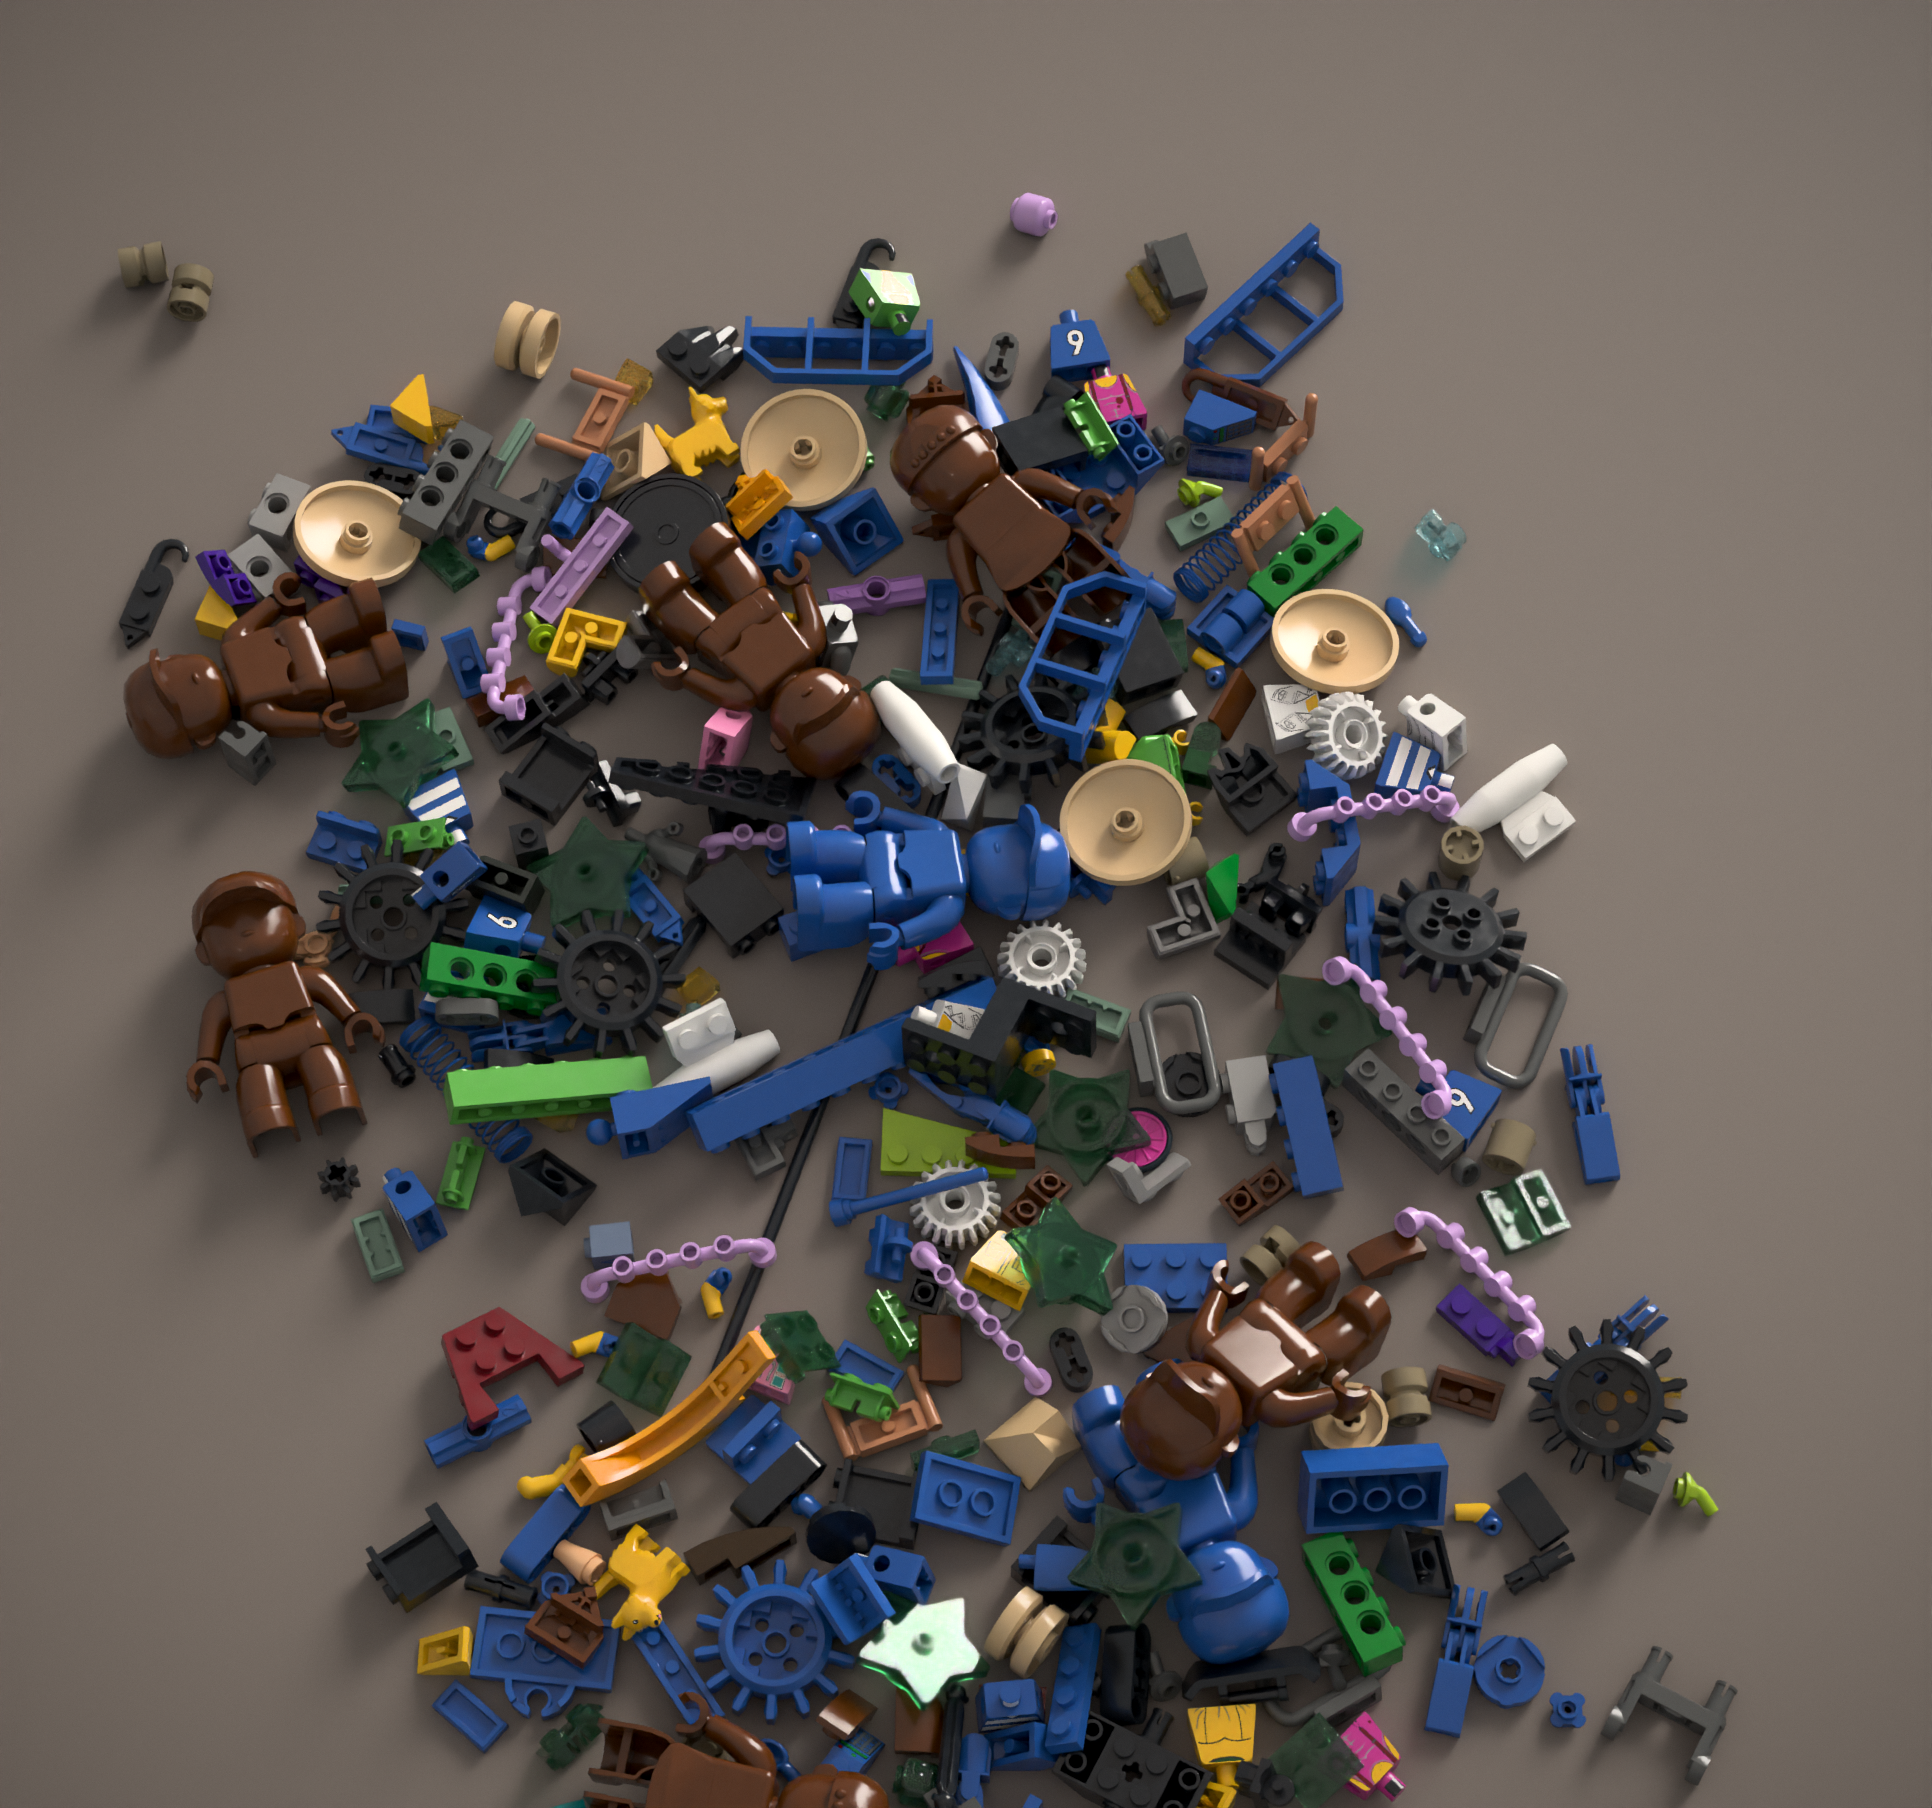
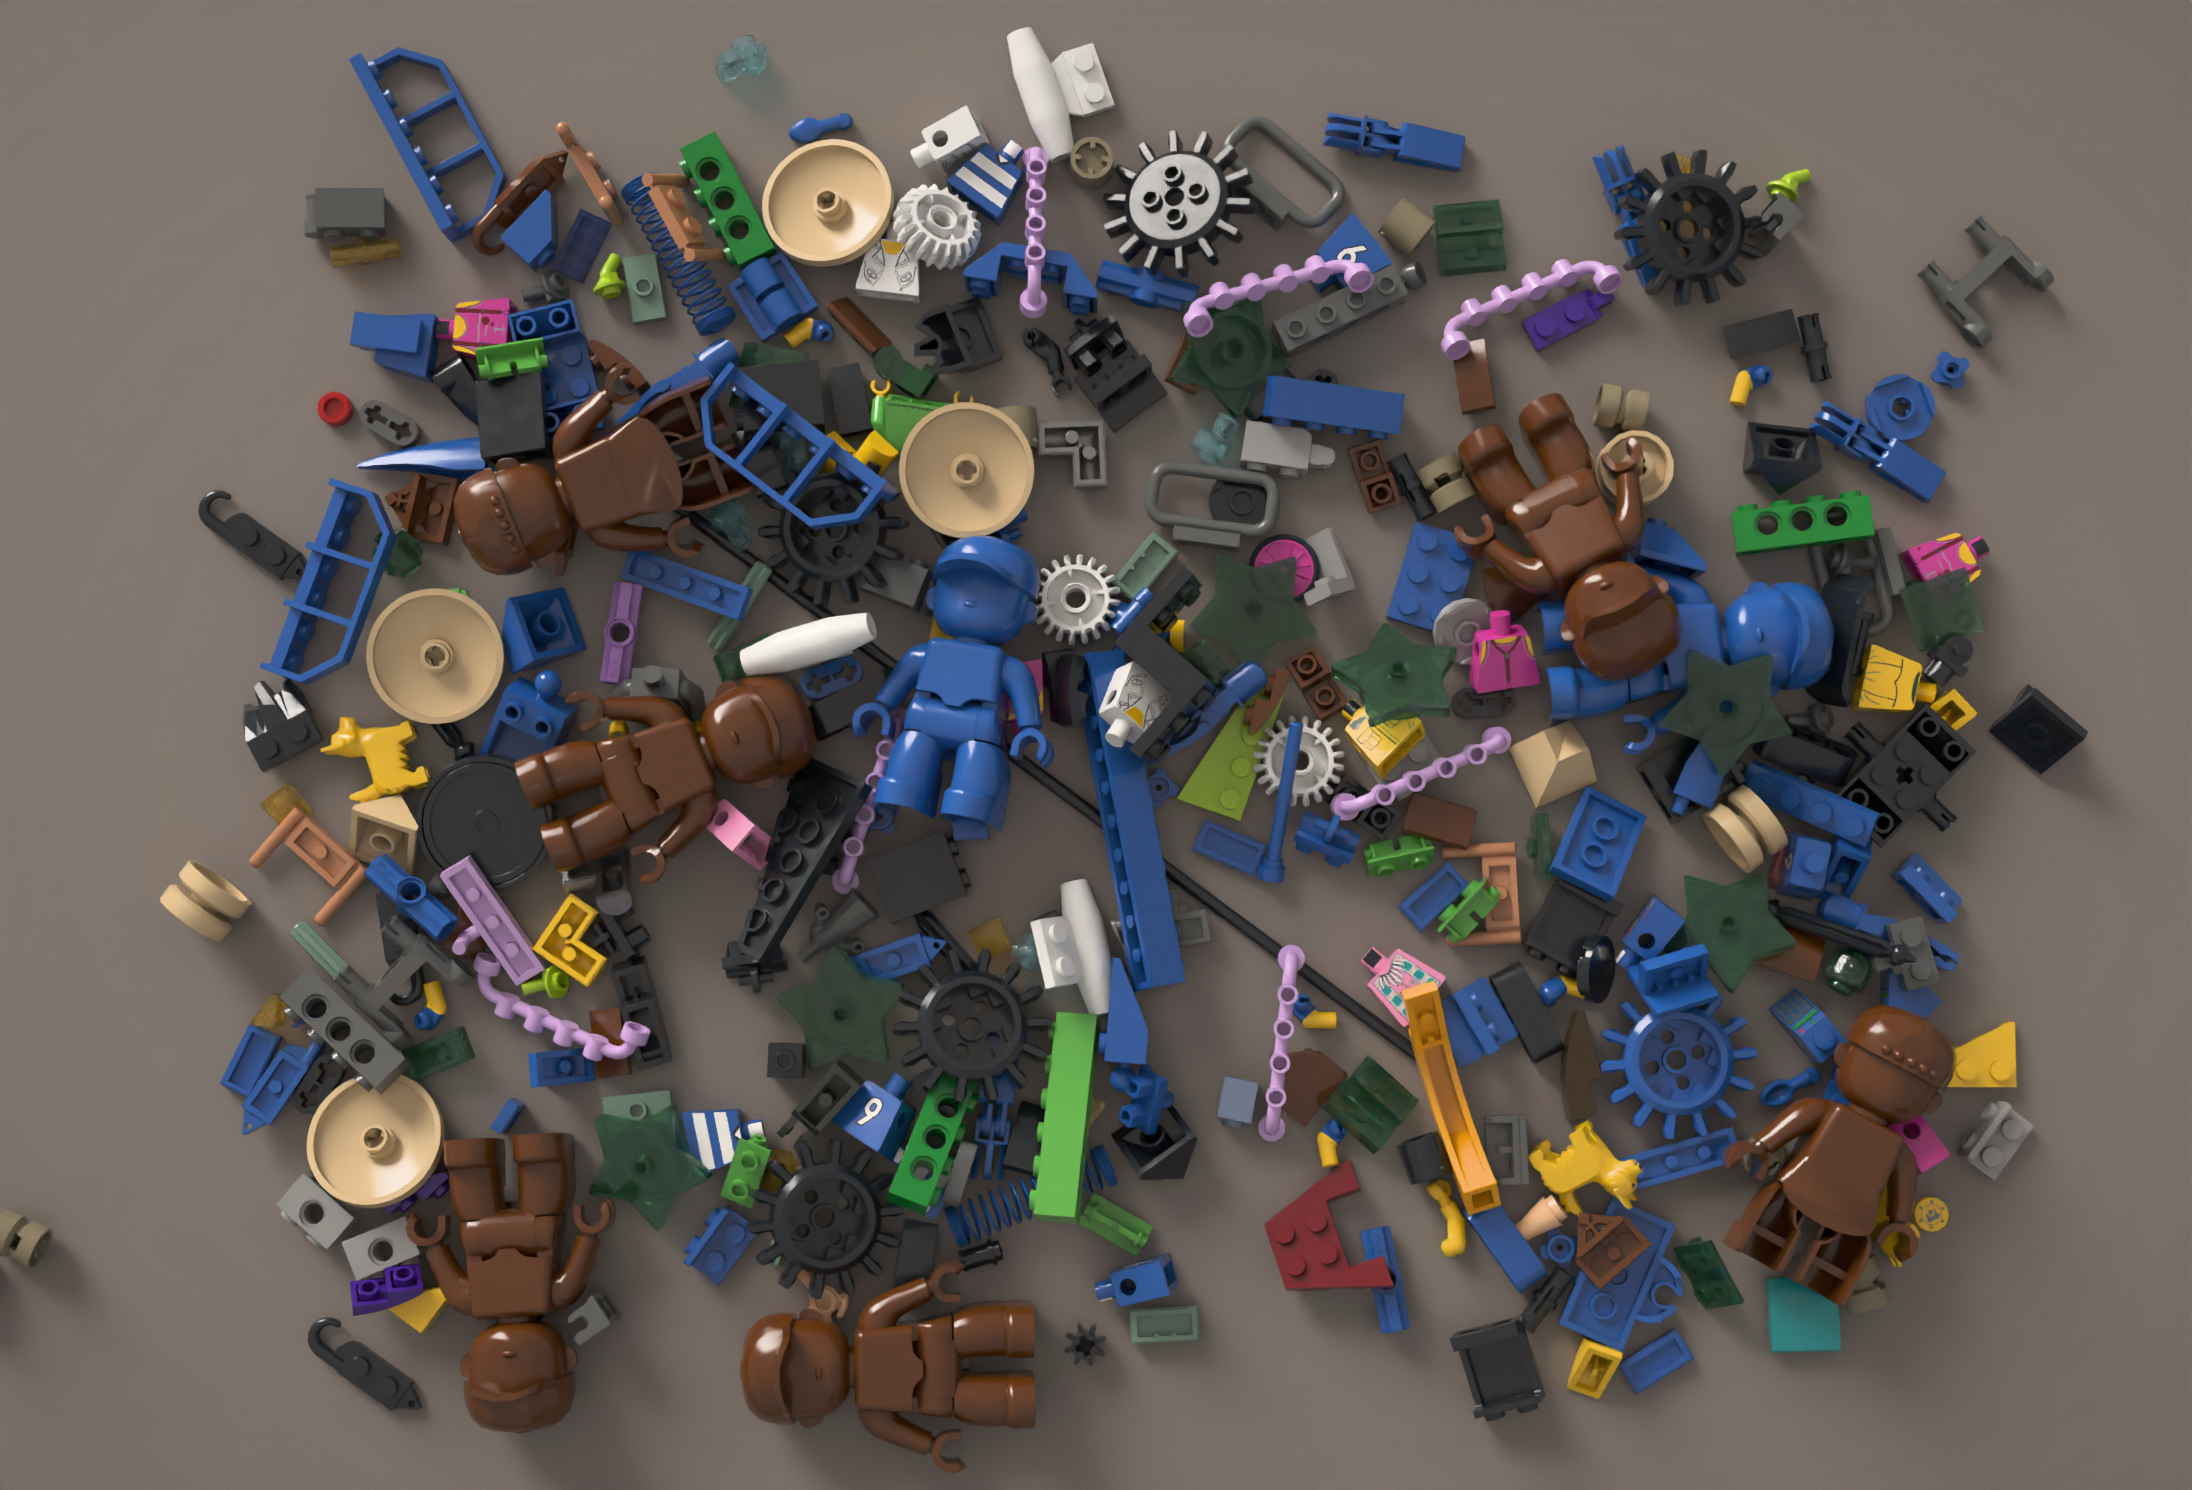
camera: 70 degrees left, 20 degrees up
(412, 410) = (248, 1042): yellow slope -> none
(462, 869) = (815, 1151): blue torso -> none
(551, 774) = (712, 1016): black panel -> none
(588, 1163) = (1148, 1098): none -> blue hips
(757, 501) = (482, 721): light orange slope -> none
(799, 1344) = (1400, 950): clear green hinge -> none
(845, 1715) = (1770, 1016): reddish brown slope -> none
(886, 298) = (285, 516): bright green torso -> none
(964, 797) = (887, 619): white slope -> none
(999, 316) = (335, 409): none -> red tile
(1033, 214) = (229, 335): lavender head -> none
(1078, 326) = (386, 333): none -> blue tile
(1120, 1353) = (1502, 656): none -> dark pink torso
(1222, 887) = (1053, 399): green slope -> none
(1239, 1038) = (1213, 443): none -> clear light blue plate
(1257, 1227) = (1411, 487): none -> black pin
(1277, 1475) = (1667, 551): none -> blue slope
(1372, 1488) = (1709, 469): blue brick -> none
(1466, 1392) = (1625, 351): reddish brown slope -> none

